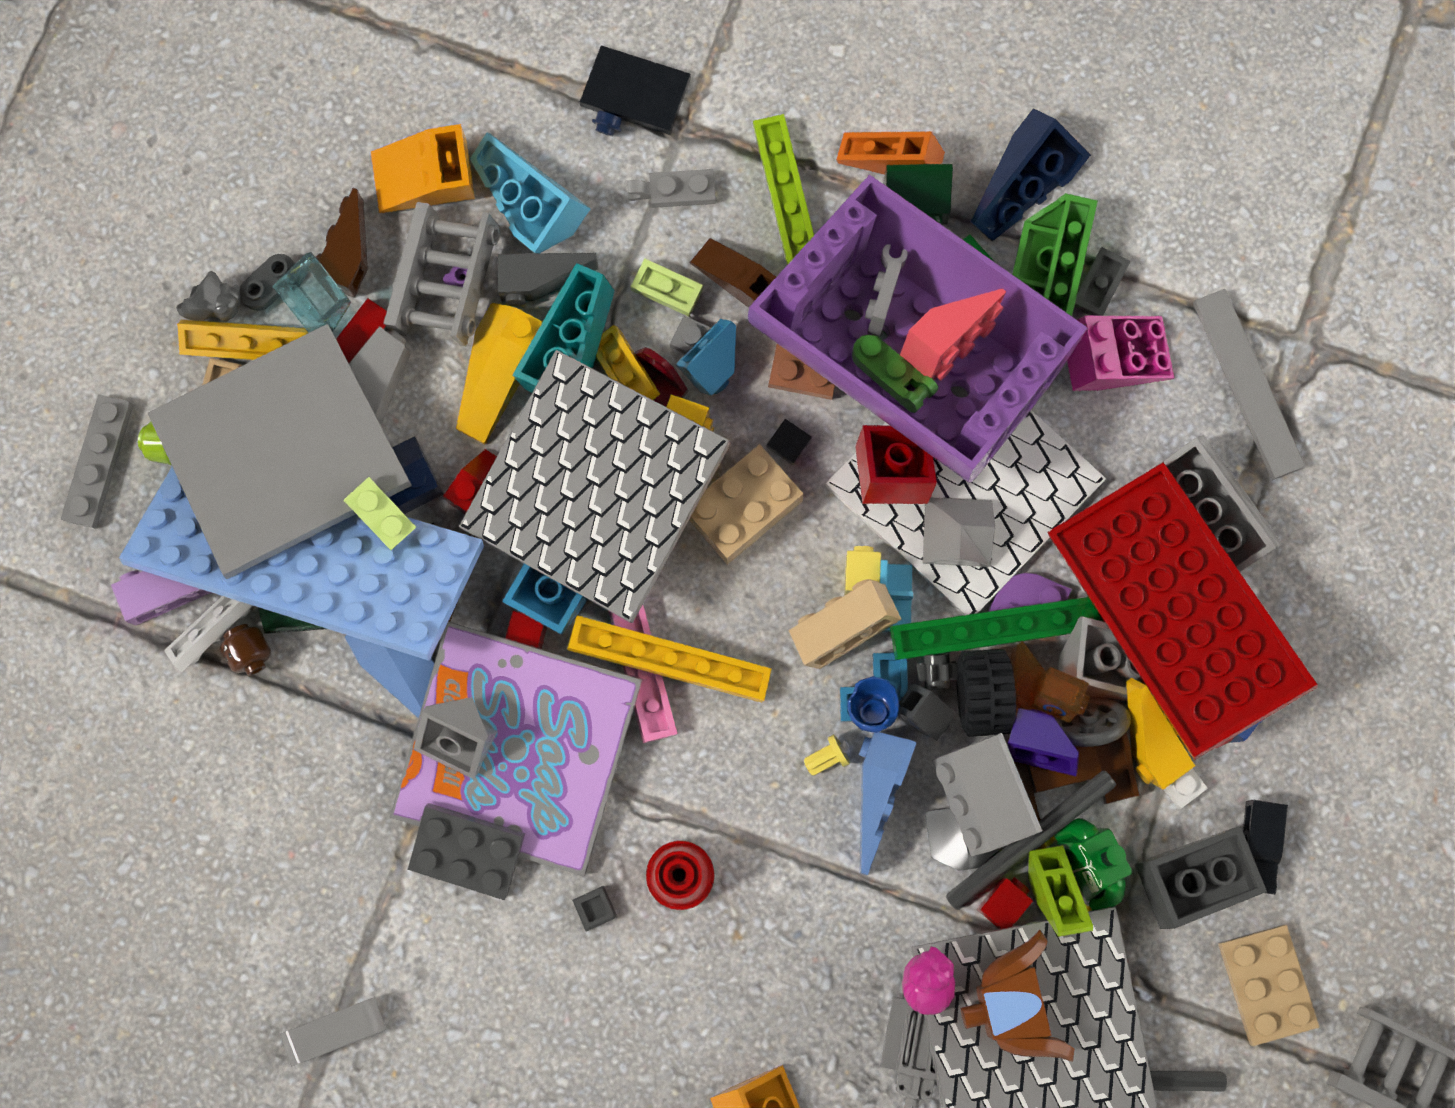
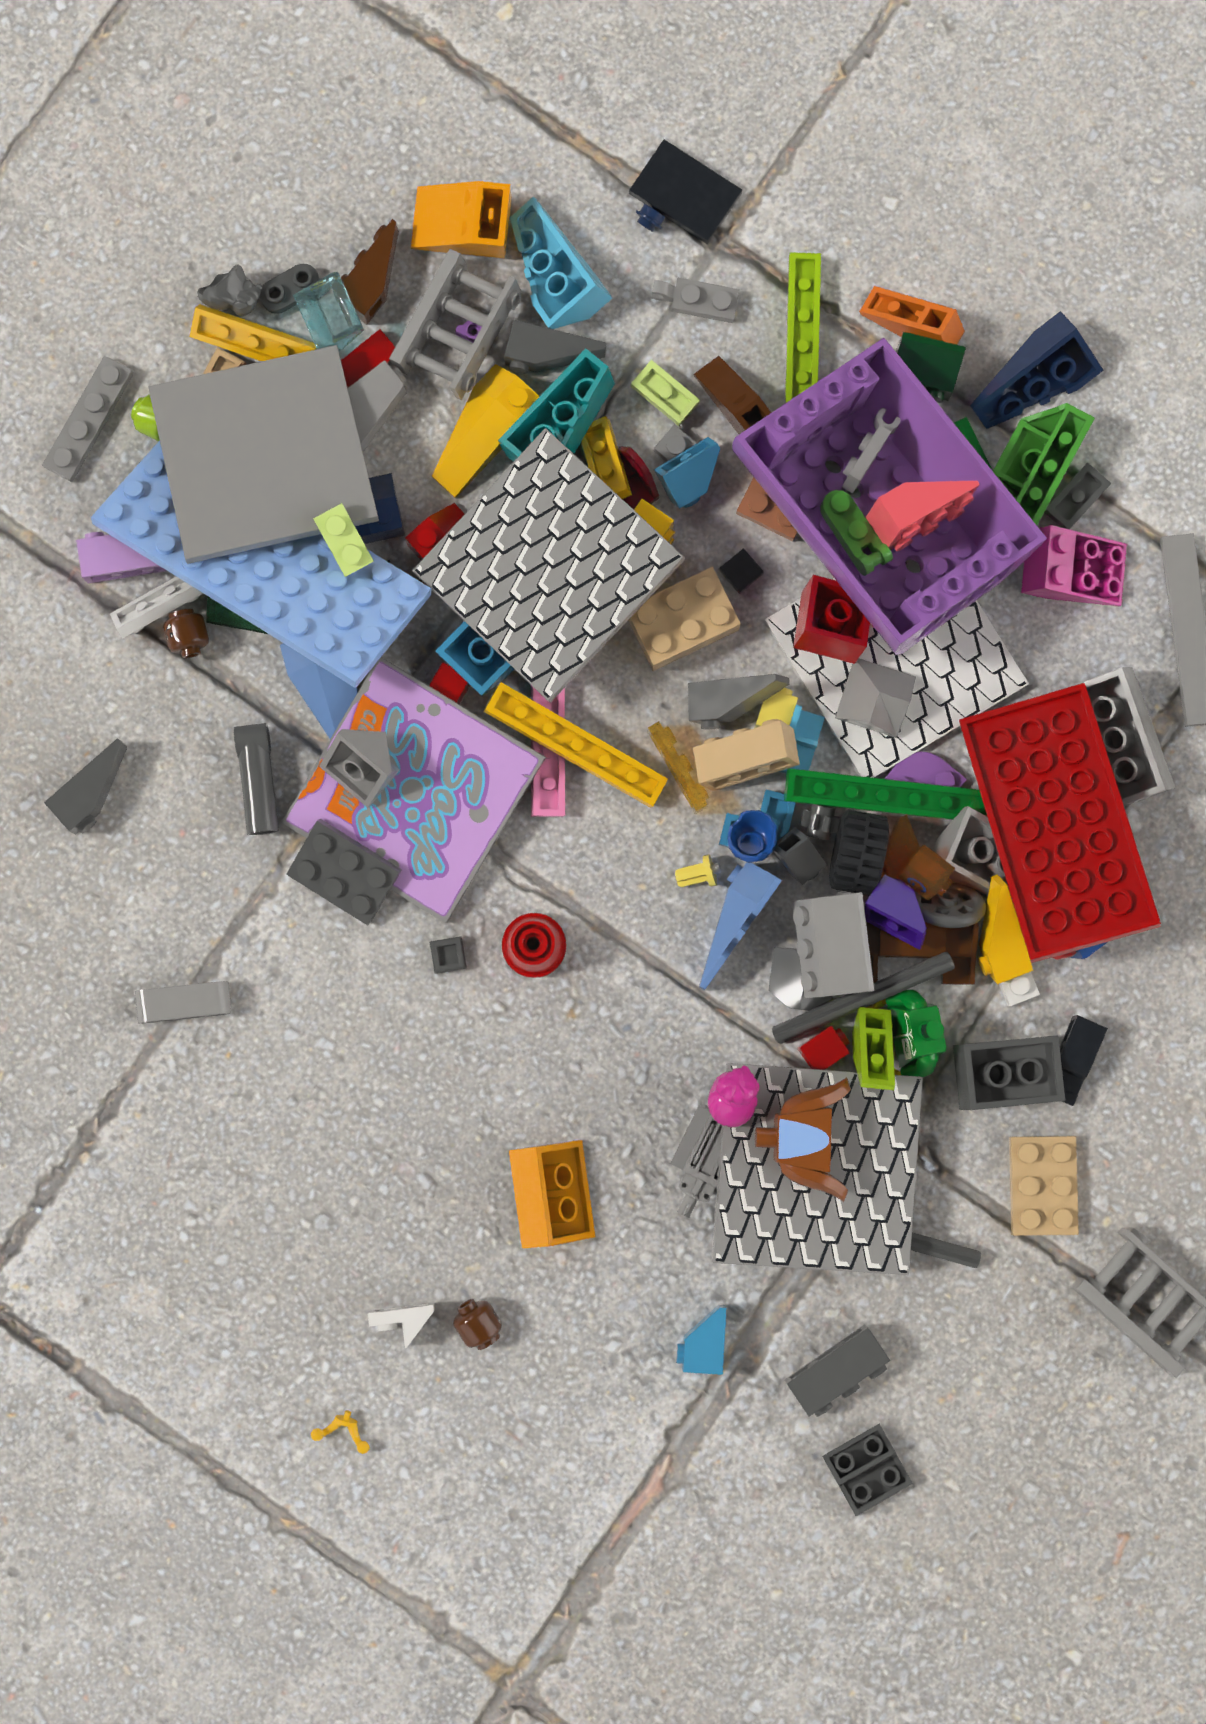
camera: 10 degrees right, 5 degrees up
(182, 839) = (86, 792): none -> dark grey slope
(343, 752) = (259, 801): none -> dark grey piece
(779, 653) = (678, 766): none -> clear yellow plate
(812, 571) = (730, 698): none -> dark grey slope

